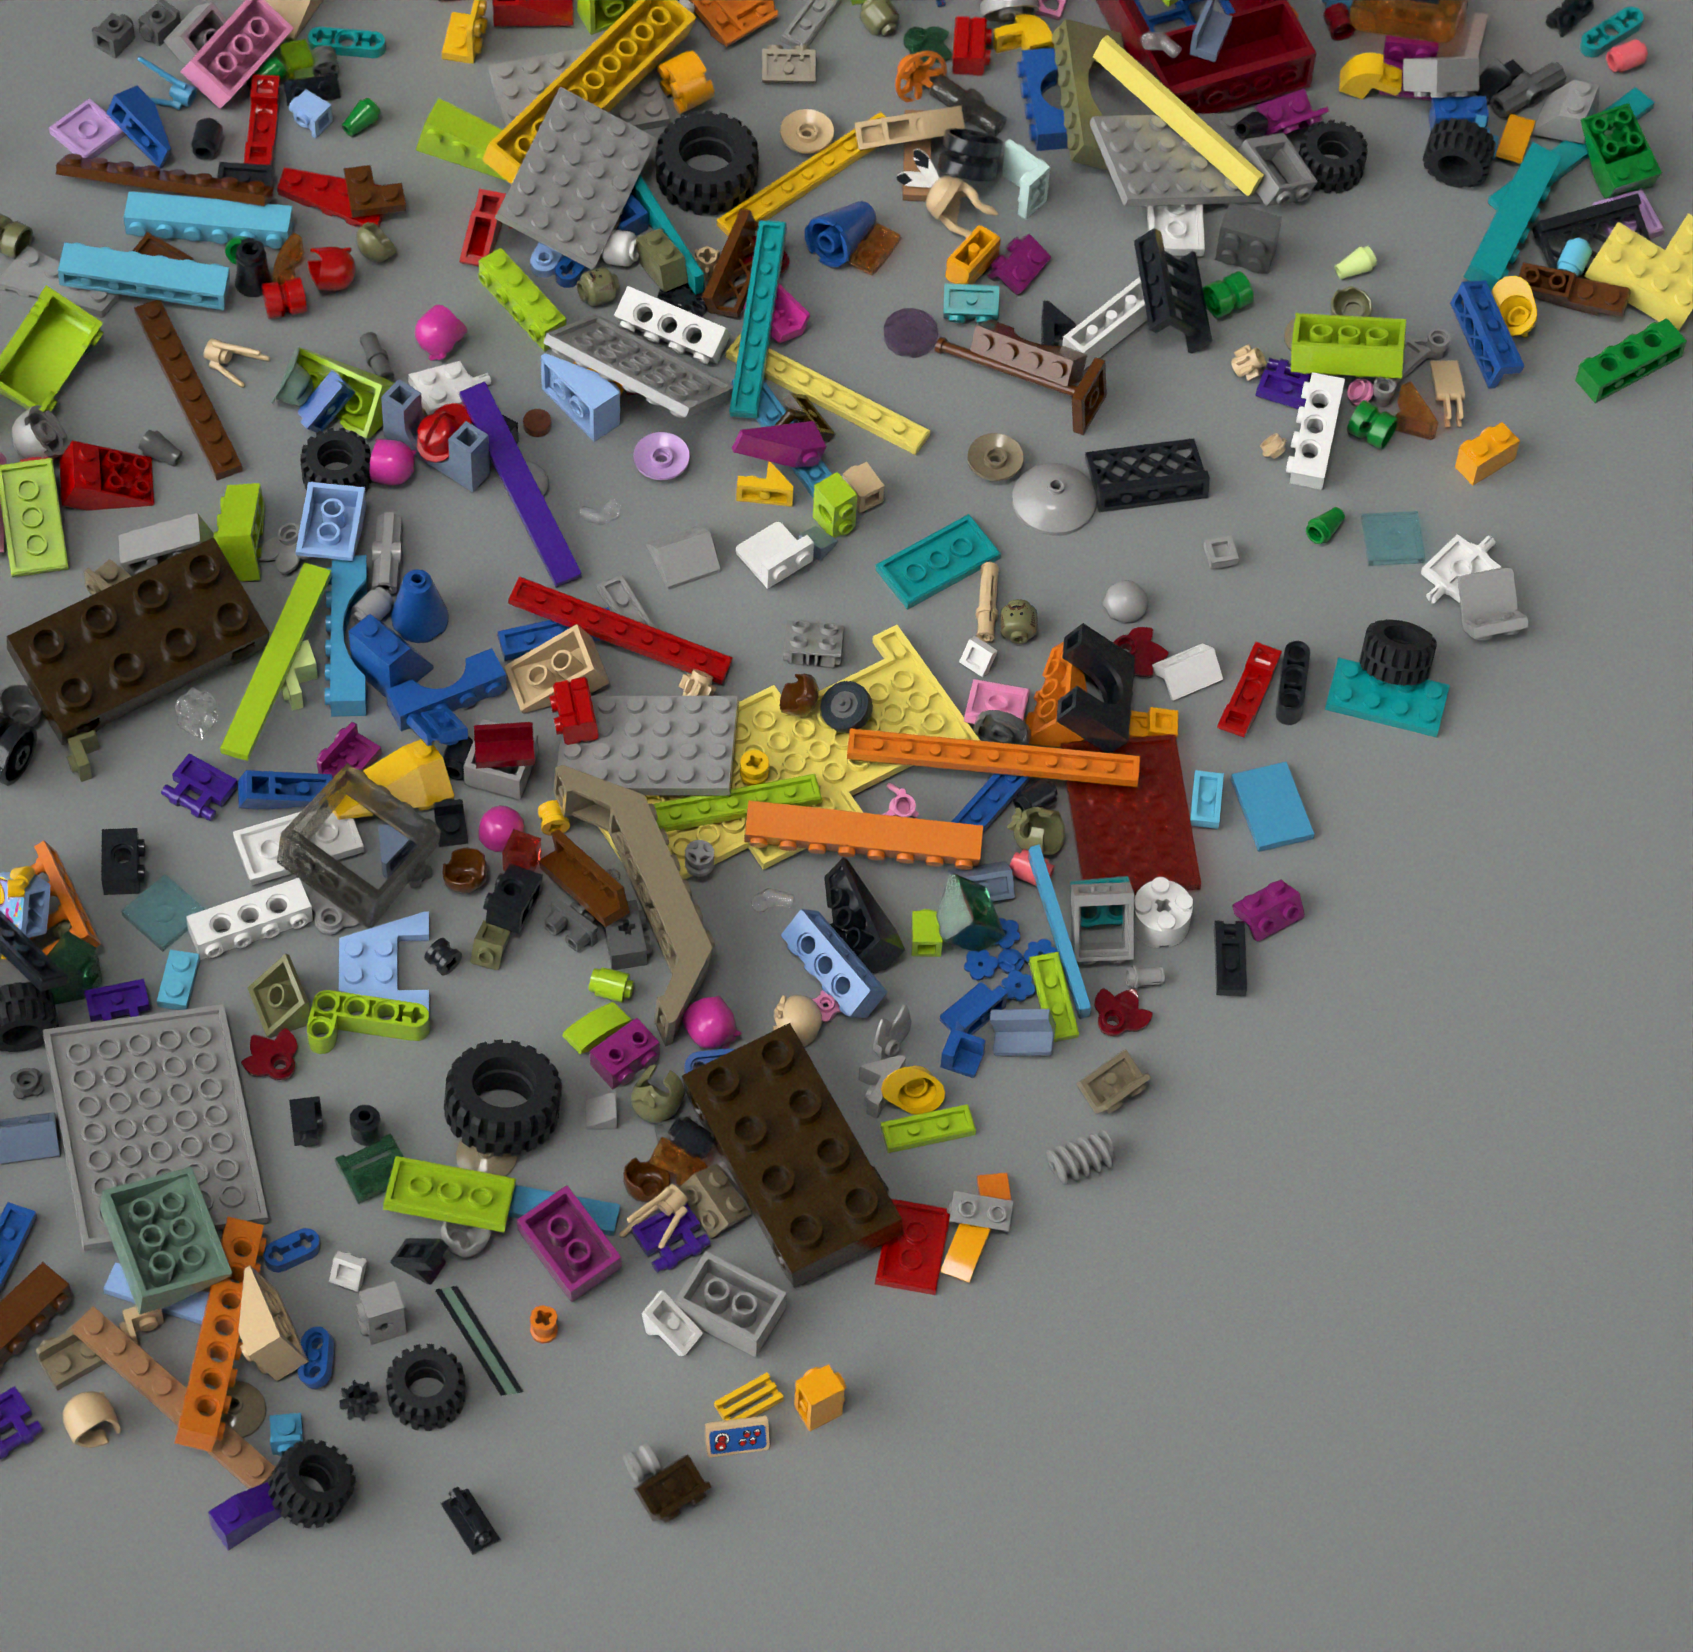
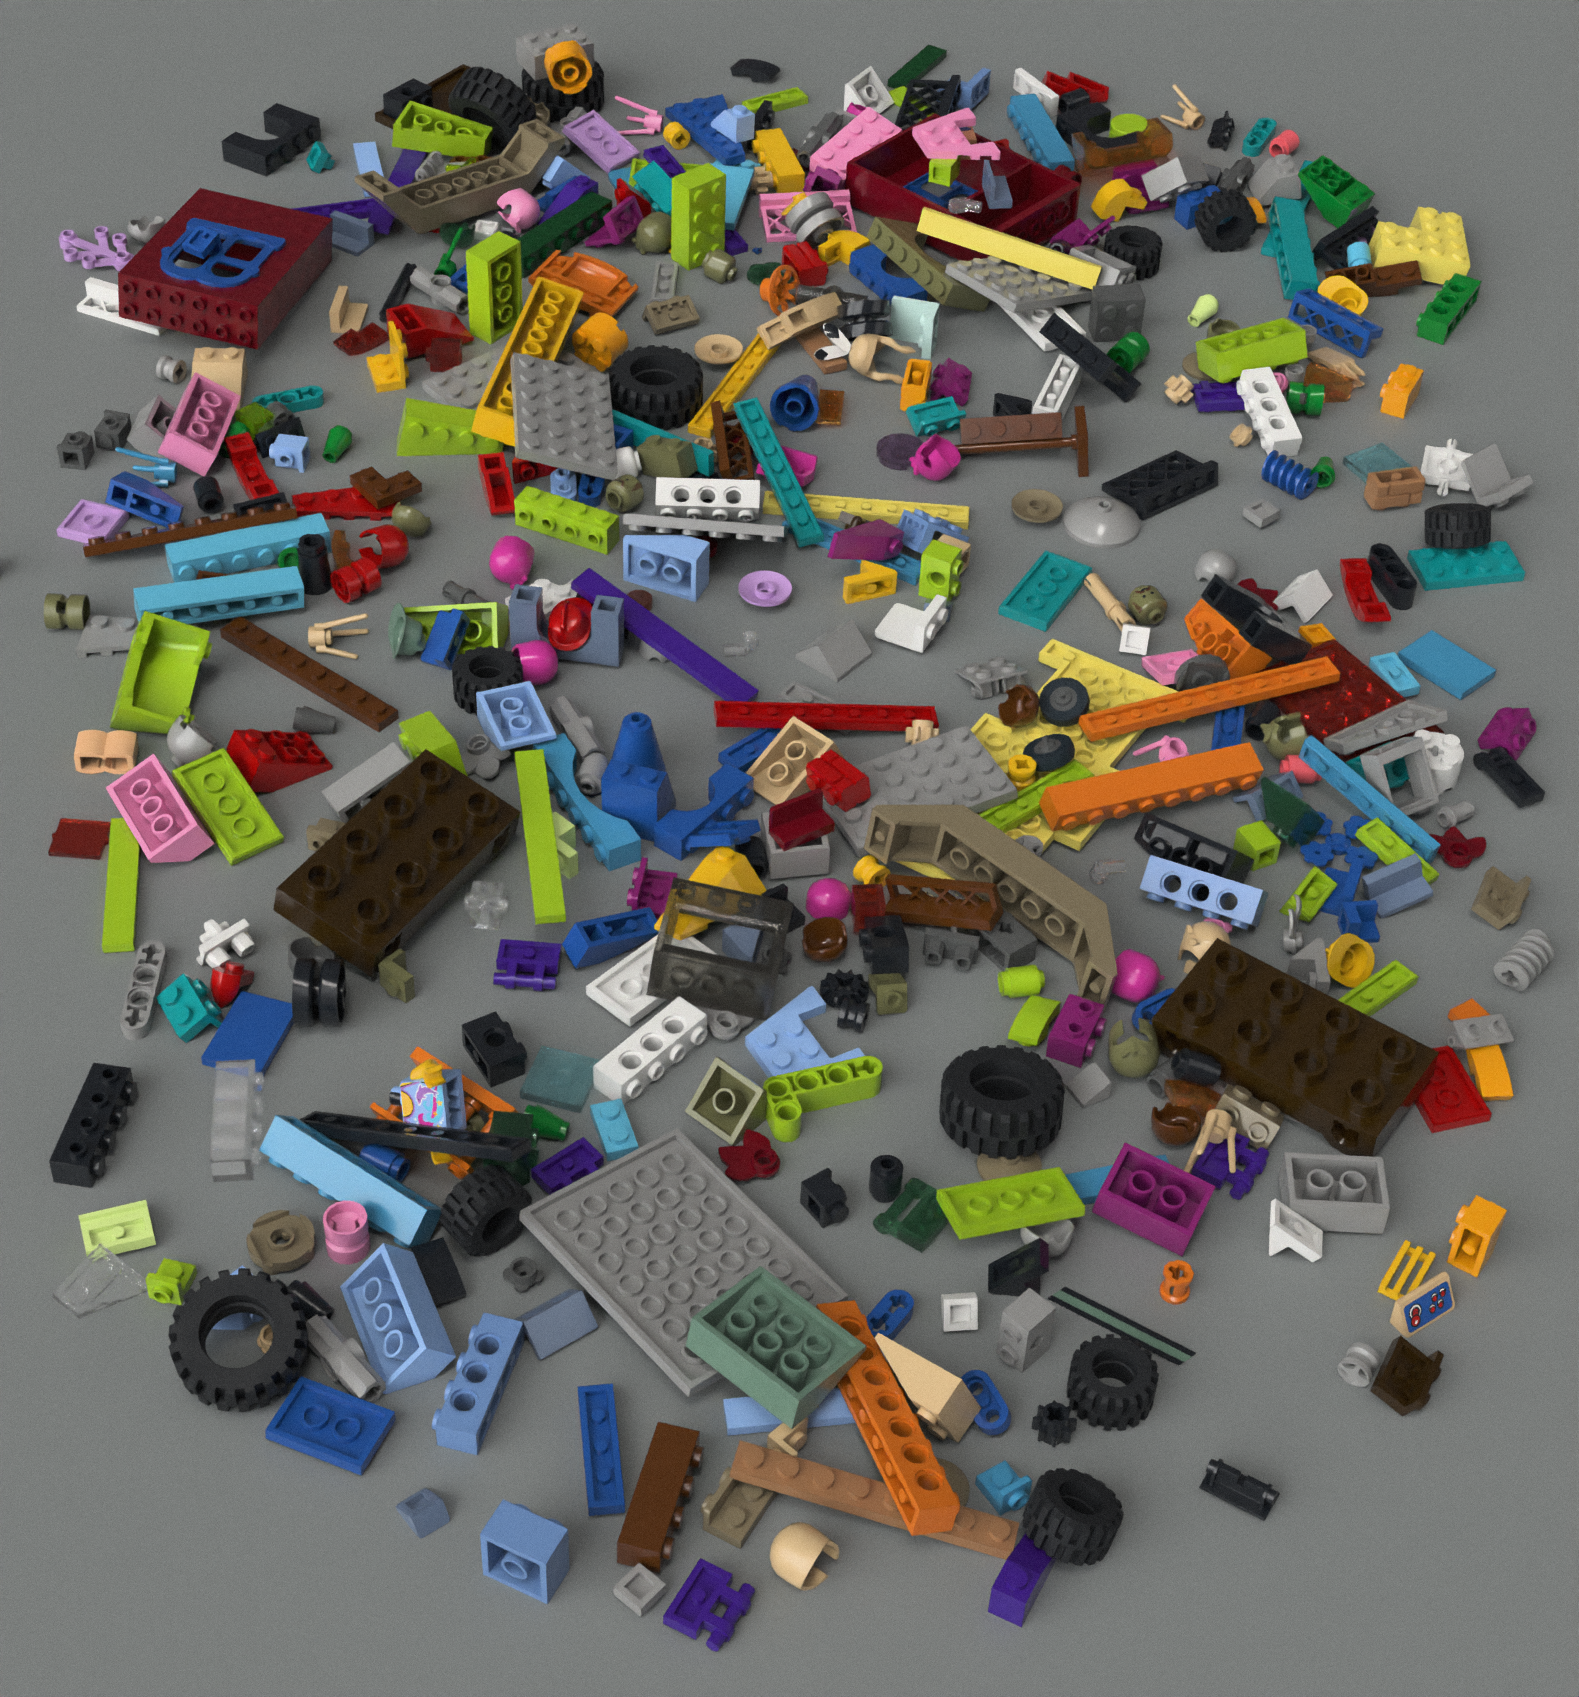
camera: 25 degrees left, 15 degrees down
(121, 950) = (549, 1124): none -> green cone
(469, 927) = (834, 996): none -> black gear
(529, 37) = (444, 354): none -> clear red brick
(792, 757) = (1050, 751): none -> black wheel
(858, 440) = (920, 528): none -> medium blue bracket
(929, 360) = (935, 458): none -> dark pink helmet
(939, 1005) = (1313, 892): none -> lime slope
(1135, 858) = (1386, 725): none -> light grey wing
(1280, 517) = (1288, 475): none -> blue piece
(1375, 577) = (1394, 488): none -> medium nougat brick

